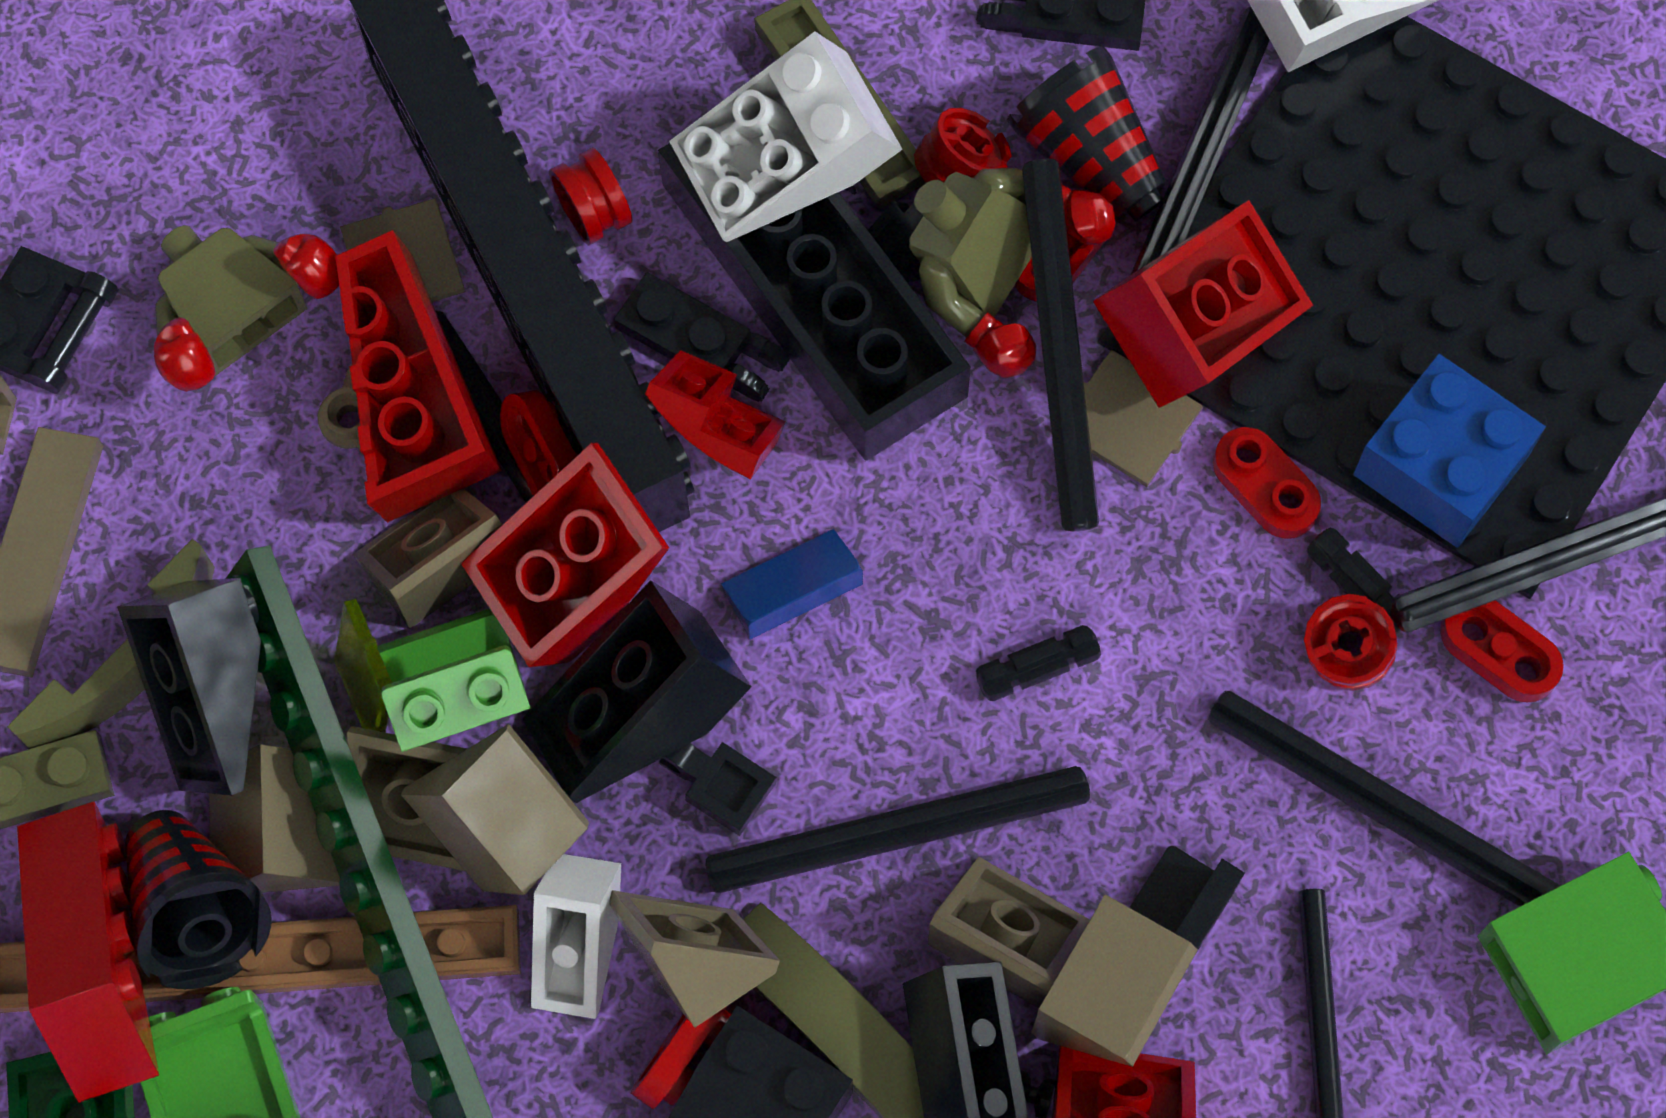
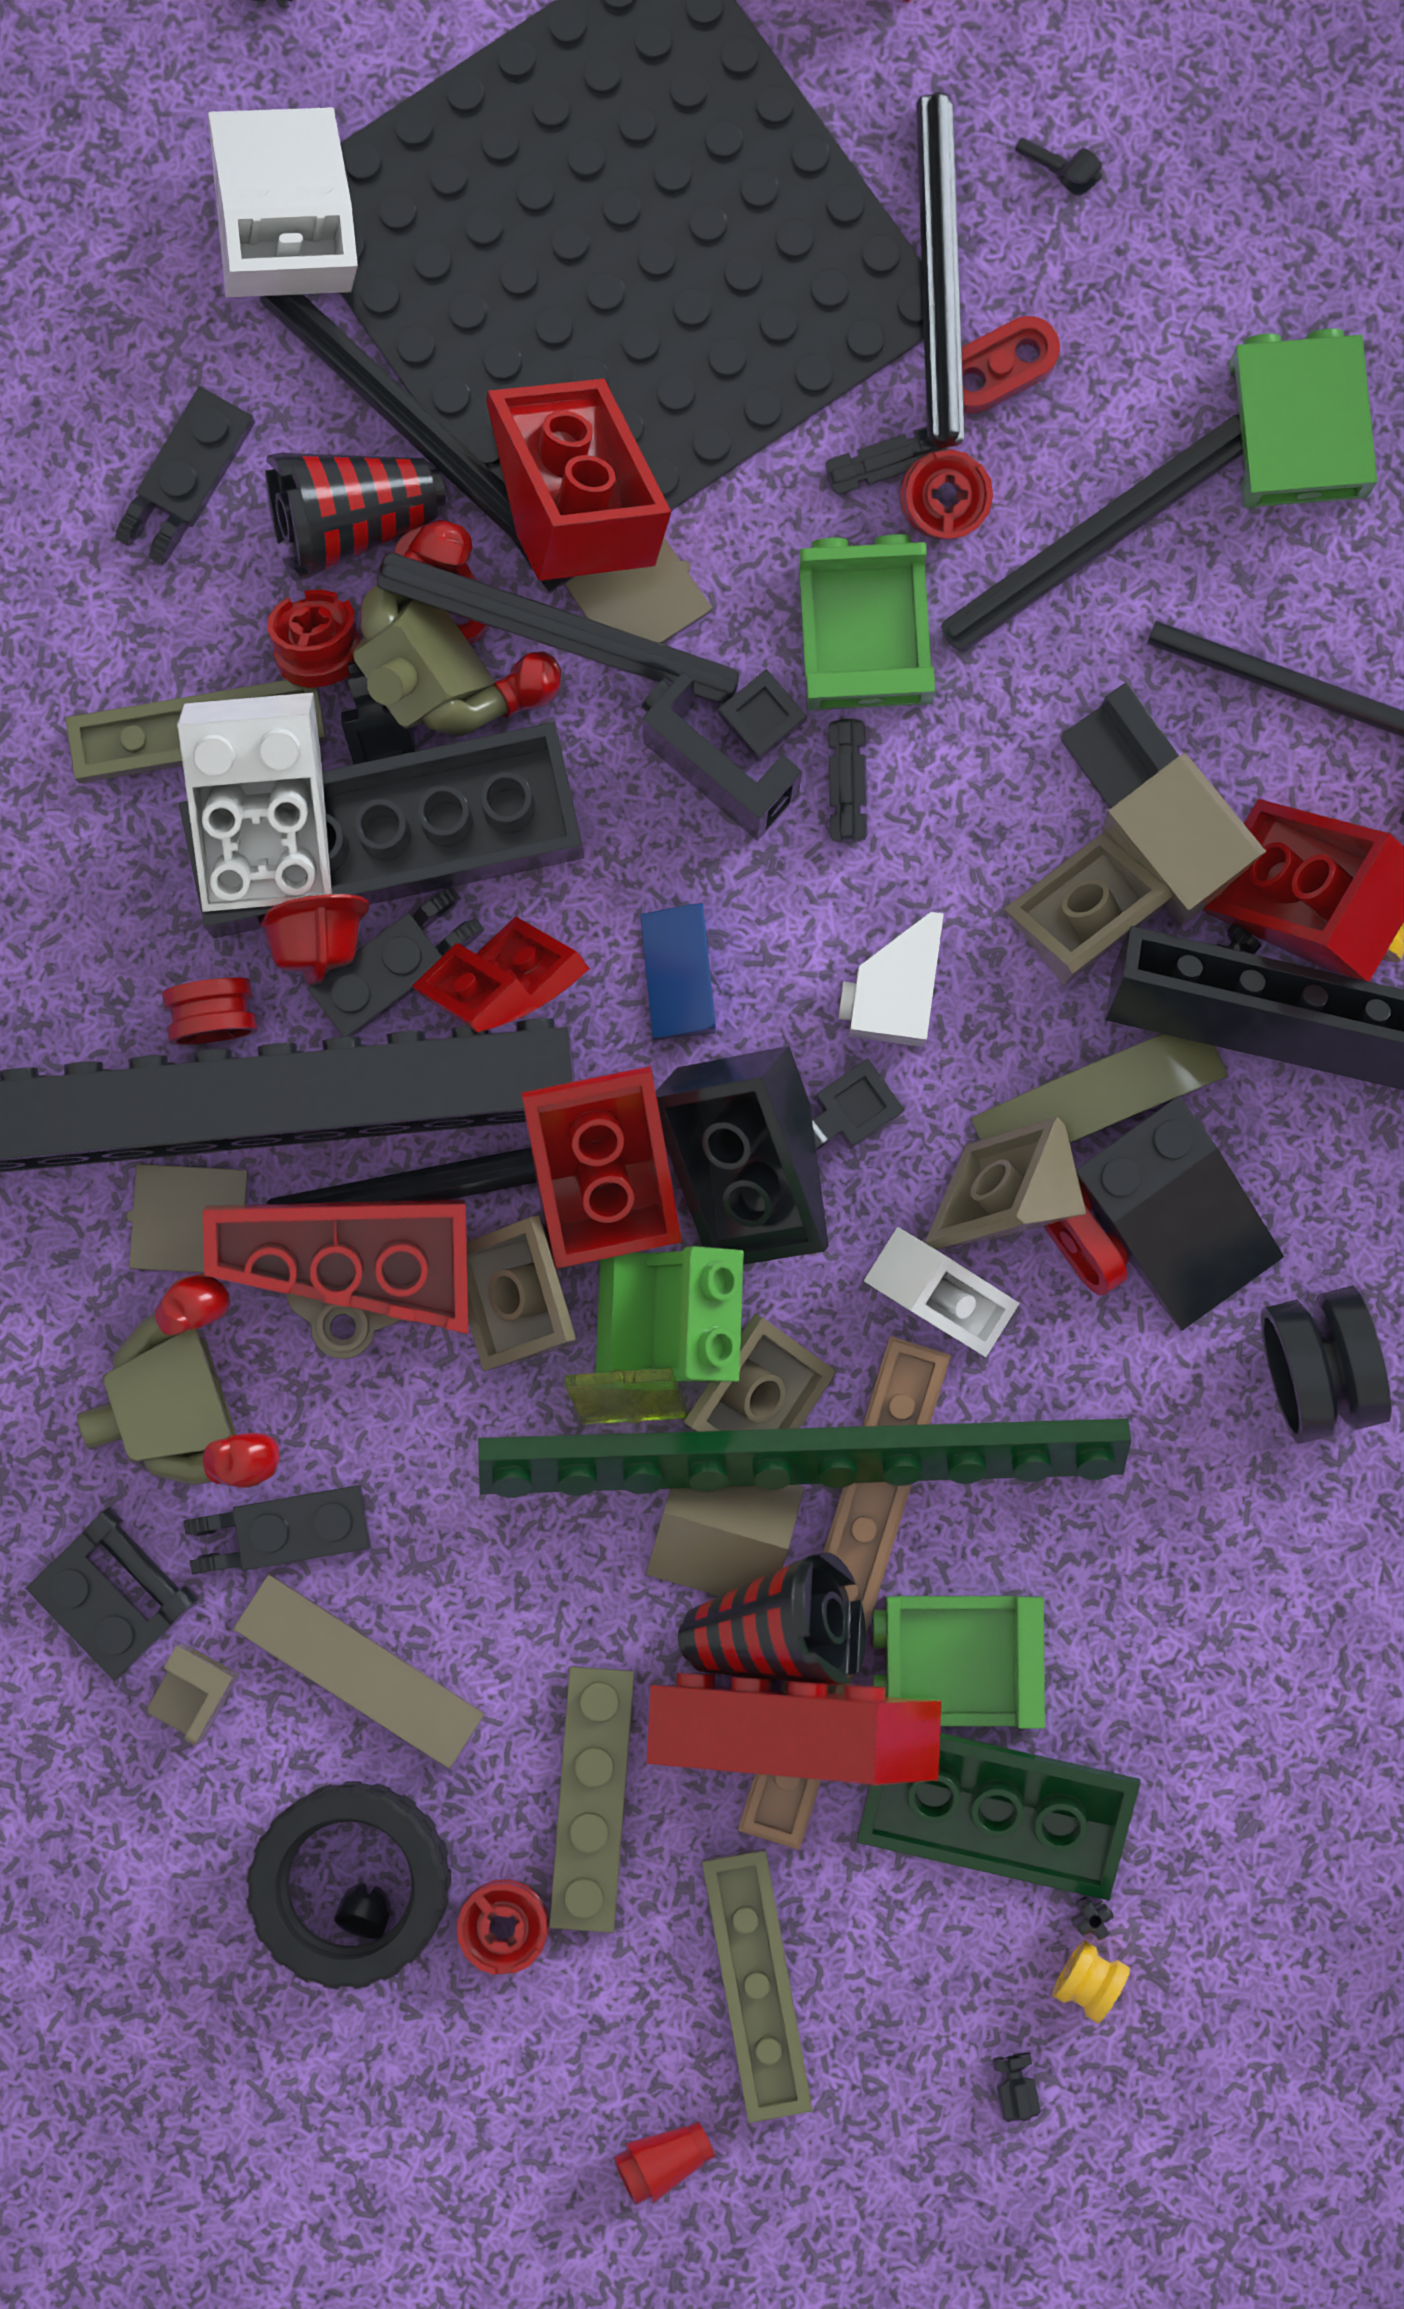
camera: 70 degrees left, 15 degrees up
(117, 682) = (544, 1690): olive slope -> none
(146, 442) = (287, 1530): none -> black hinge
(200, 677) = (579, 1545): black slope -> none
(498, 813) = (817, 1318): dark tan slope -> none
(535, 437) = (466, 1153): red plate -> none
(691, 245) = (314, 933): none -> red piece
(858, 776) = (895, 987): none -> white slope
(897, 829) = (953, 970): black axle -> none
(986, 582) = (746, 802): none -> black panel
(1065, 561) = (762, 715): none -> black plate
(1194, 621) = (865, 624): none -> bright green panel
(1264, 481) = (758, 503): red plate -> none
(1448, 450) = (808, 323): blue brick -> none

